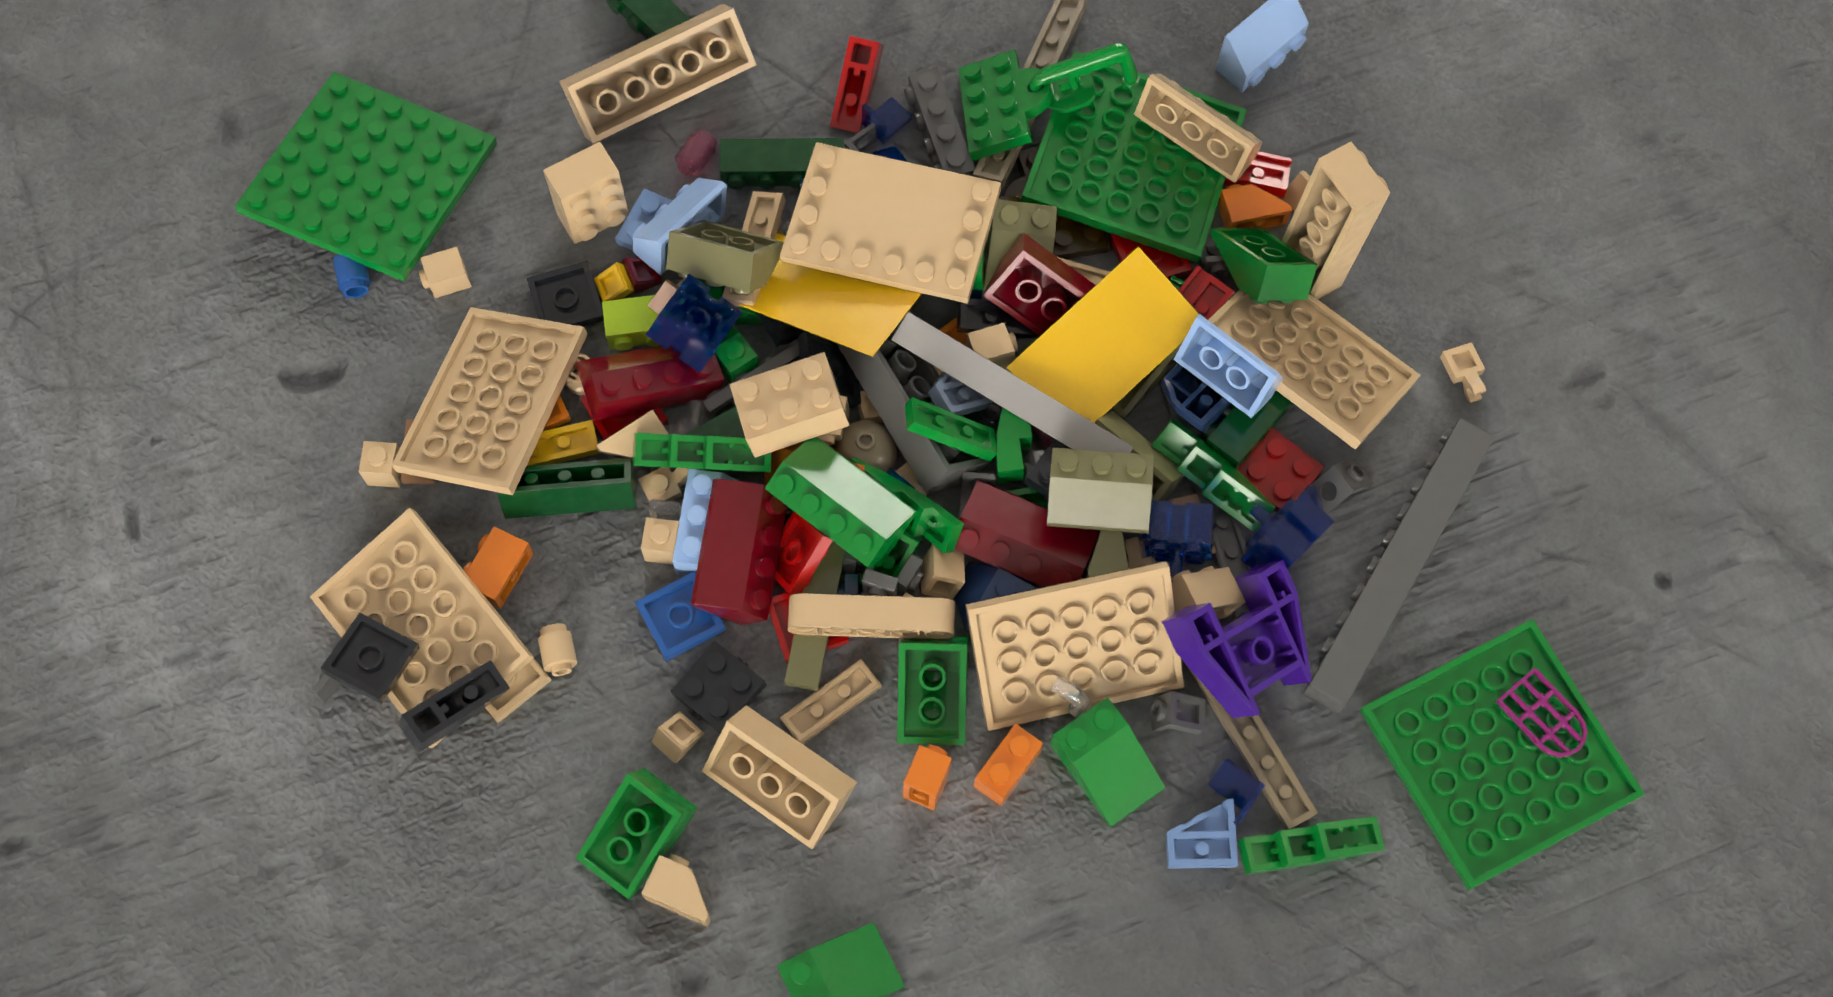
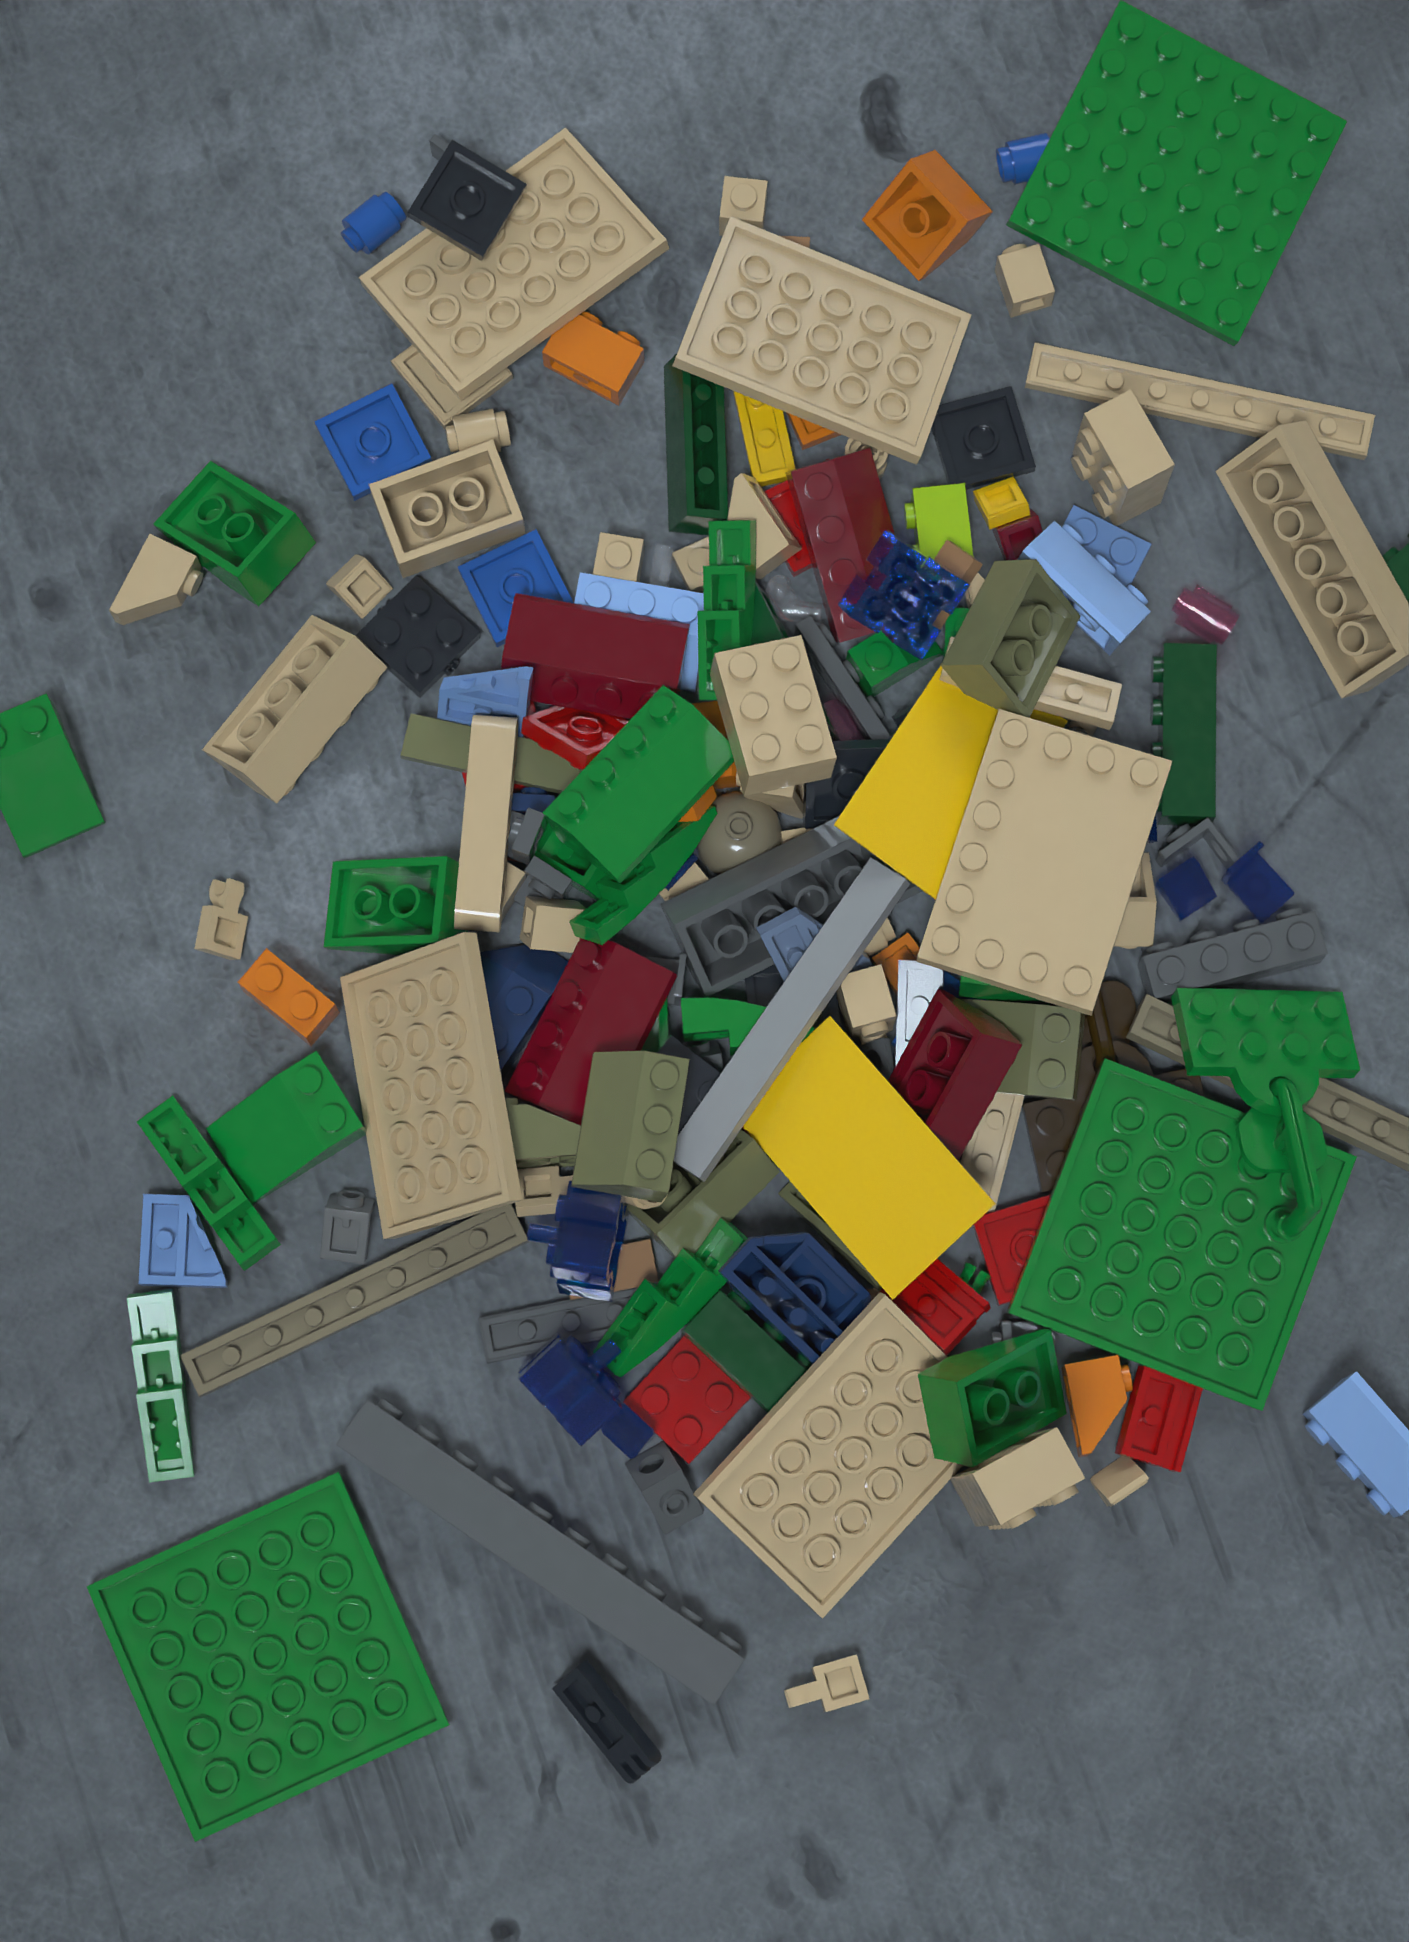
camera: 95 degrees right, 10 degrees up
(381, 739) = (372, 223): none -> blue brick
(392, 339) = (926, 214): none -> orange slope
(452, 706) = (397, 302): black slope -> none
(539, 153) = (1196, 399): none -> tan tile
(562, 729) = (372, 440): none -> blue plate
(619, 665) = (447, 508): none -> tan brick
(772, 621) = (486, 693): none -> medium blue wing
(830, 702) = (392, 779): tan tile -> none
(856, 83) = (1318, 843): red slope -> none
(927, 776) = (273, 889): orange brick -> none
(950, 429) = (735, 932): green plate -> none
(952, 820) = (220, 924): none -> tan plate
(1079, 701) = (364, 1091): clear arm -> none
(1153, 820) = (208, 1183): none -> green slope
(1197, 127) = (1216, 1324): tan slope -> none
(1207, 586) = (499, 1268): tan brick -> none
(1227, 367) = (814, 1320): light blue slope -> none
(1236, 784) = (243, 1295): clear blue bracket -> none
(1252, 649) = (413, 1321): dark purple wedge -> none
(1512, 512) = (607, 1722): none -> black hinge
(1529, 712) = (329, 1718): magenta window -> none

